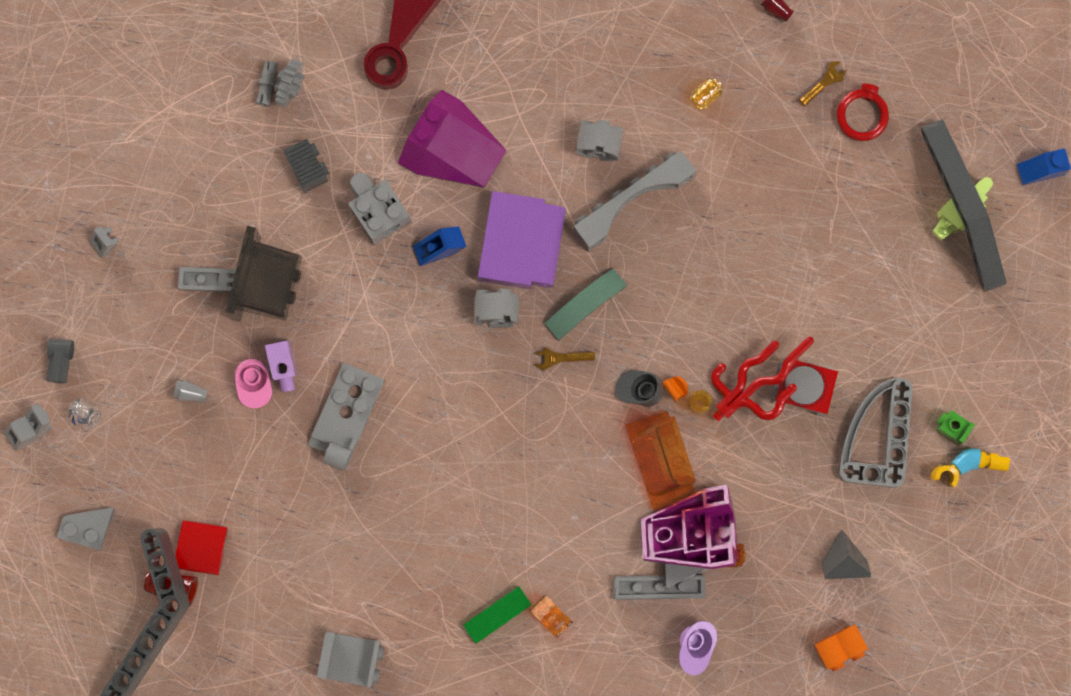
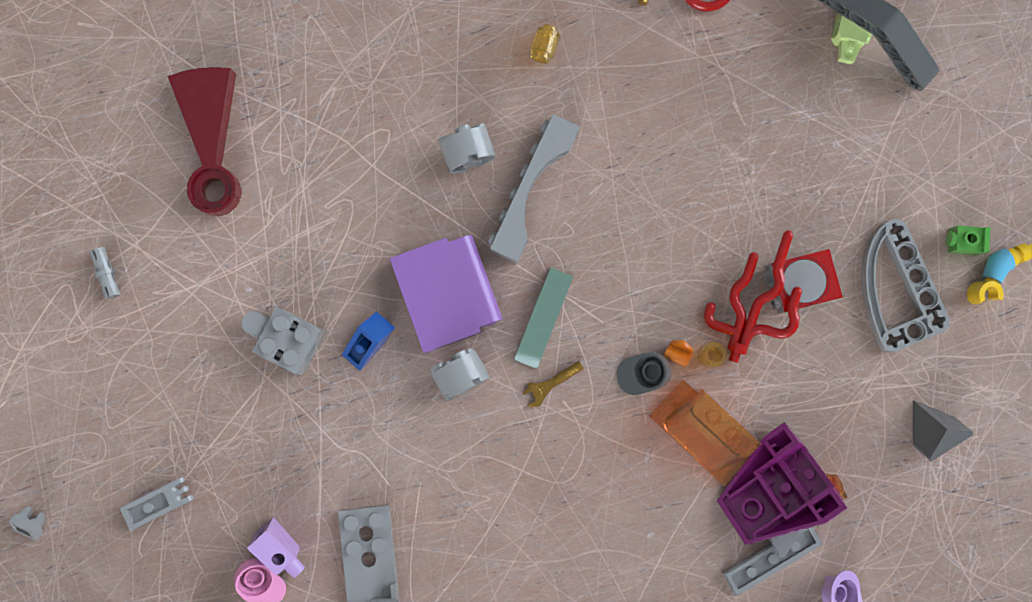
camera: 25 degrees left, 5 degrees up
(263, 279) = (208, 475): clear smoke windscreen -> none
(289, 82) = (123, 261): light grey gear -> none
(306, 165) = (190, 334): dark grey brick -> none
(451, 144) = (322, 232): magenta wedge -> none
(841, 647) = (981, 519): orange brick -> none

